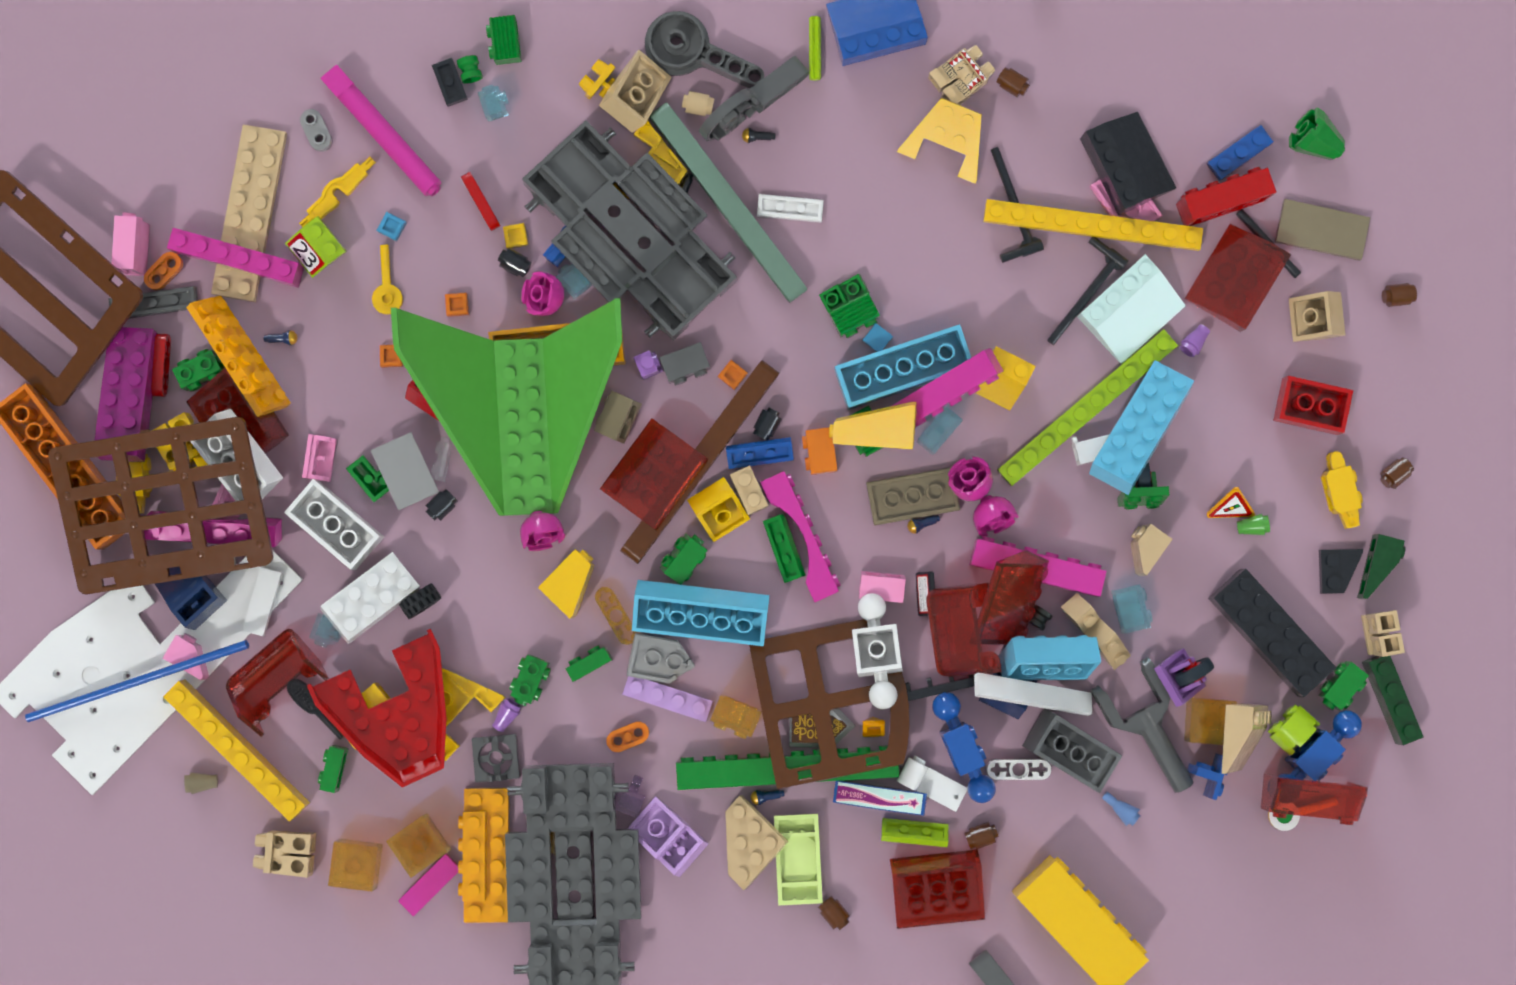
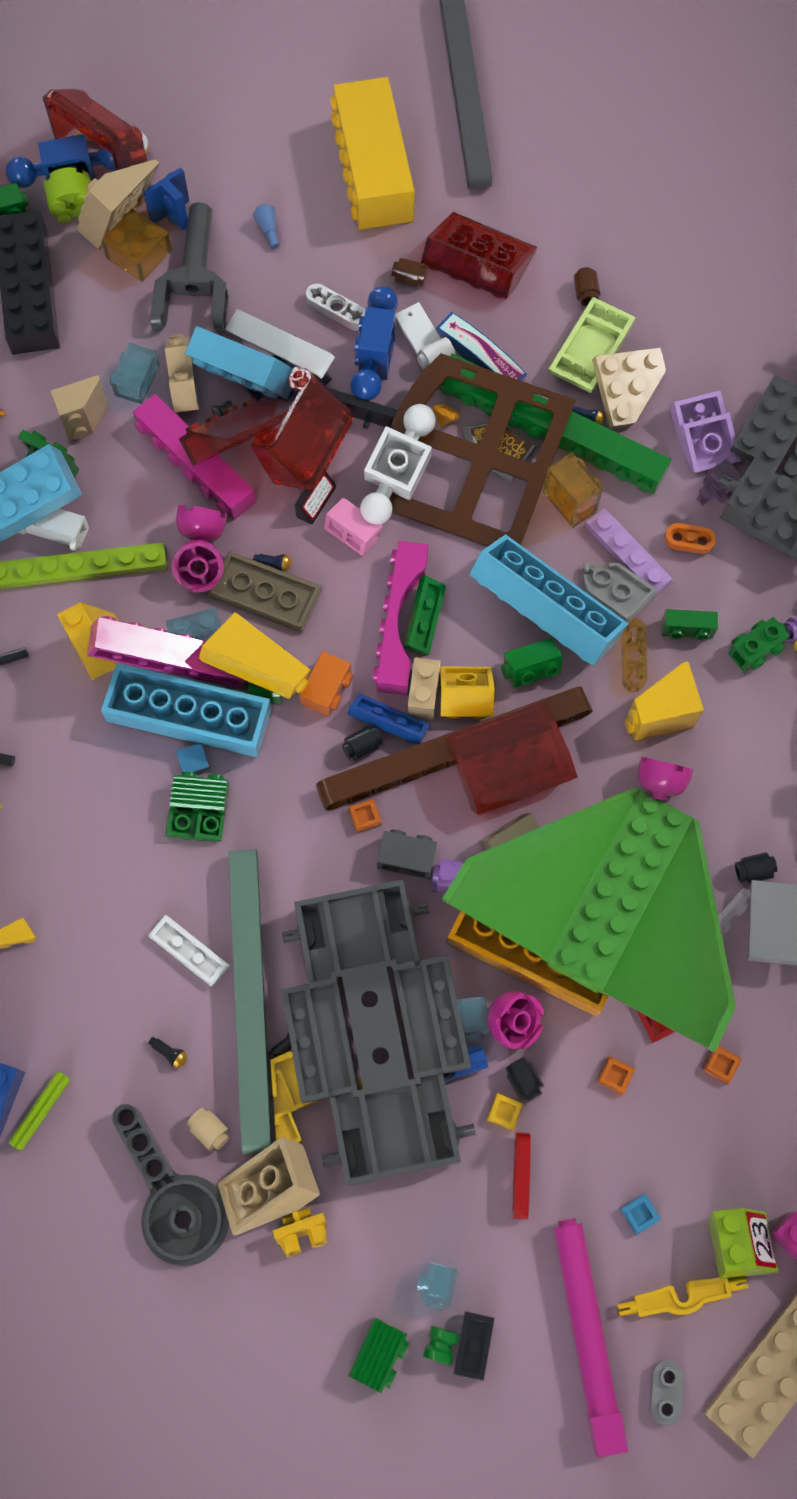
camera: 155 degrees left, 15 degrees down
(386, 295) = (691, 1135): yellow piece -> none
(757, 98) = (139, 1088): dark grey beam -> none
(914, 832) = (468, 307): lime plate -> none
(1072, 750) = (279, 292): dark grey slope -> none
(1183, 675) = (129, 285): medium lavender plate -> none

